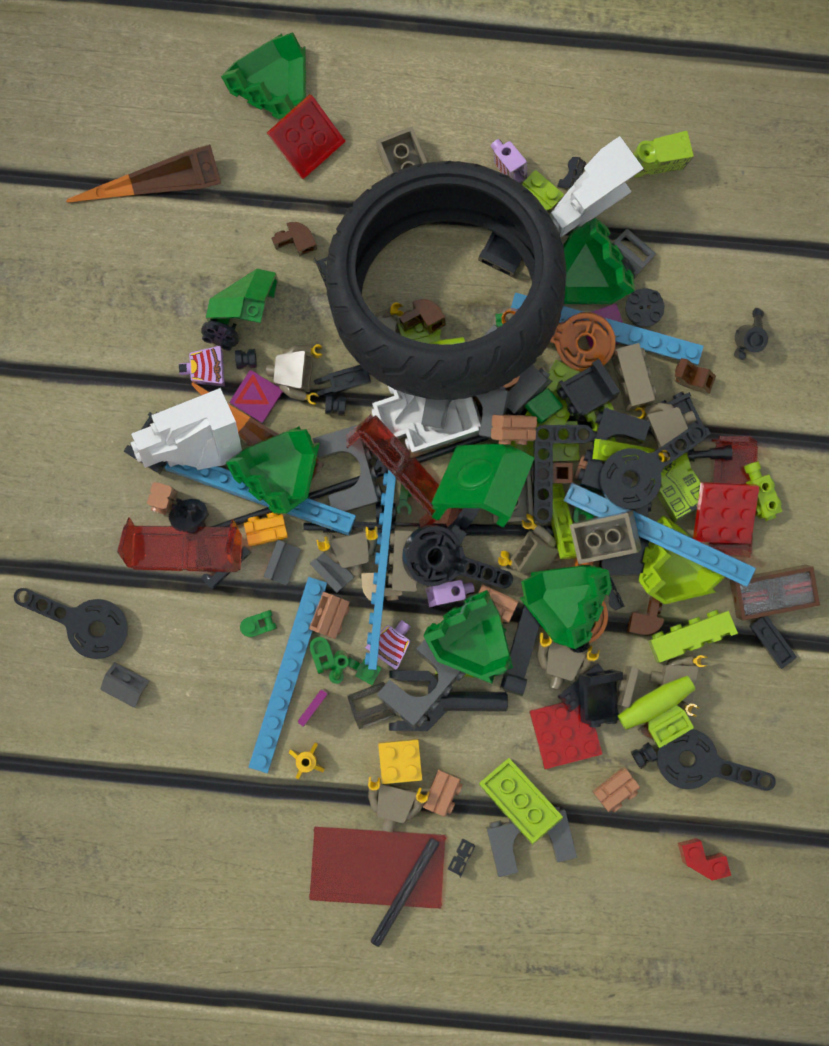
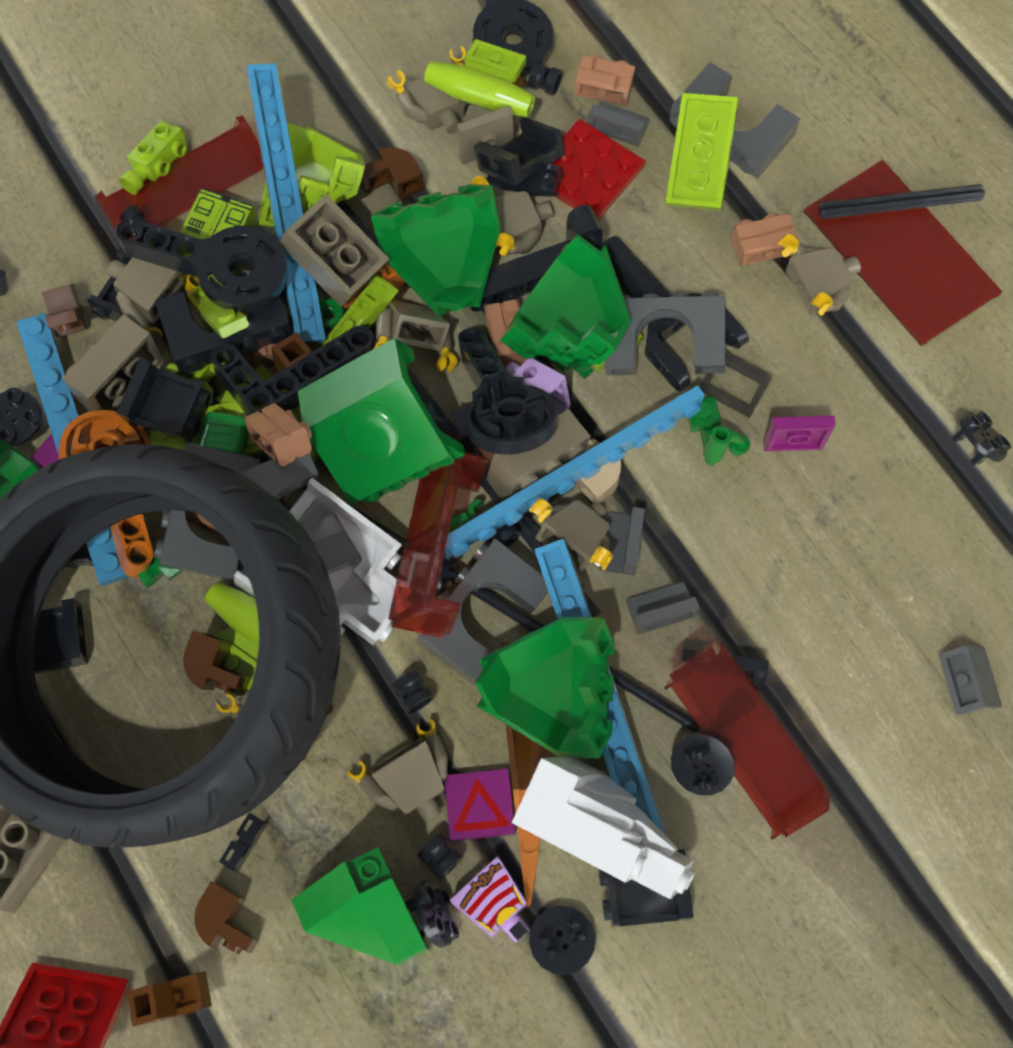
camera: 120 degrees left, 15 degrees down
(79, 621) = (951, 797): black beam -> none
(161, 498) = (711, 812): nougat brick -> none
(165, 377) = (576, 932): none -> black plate
(236, 806) = (983, 437): none -> black plate
(251, 627) = (769, 584): green plate -> none
(265, 530) = (640, 655): light orange brick -> none
(278, 190) = (169, 999): none -> reddish brown brick
(287, 677) = (783, 500): dark azure plate -> none
(308, 755) = (862, 402): yellow brick -> none
(320, 647) = (725, 485): green plate -> none
(329, 615) = (677, 499): nougat brick -> none
(344, 380) = (370, 707): black hinge -> none
(393, 644) = (645, 399): torso -> none
(400, 761) = (770, 303): yellow brick -> none
(459, 860) = (826, 164): black piece -> none
(583, 776) = (618, 123): none -> dark grey panel
(692, 635) = (372, 113): lime wedge -> none
(726, 512) = (205, 166): red plate -> none
(772, 641) = (316, 45): black hinge -> none
(775, 592) = (242, 45): clear brick -> none

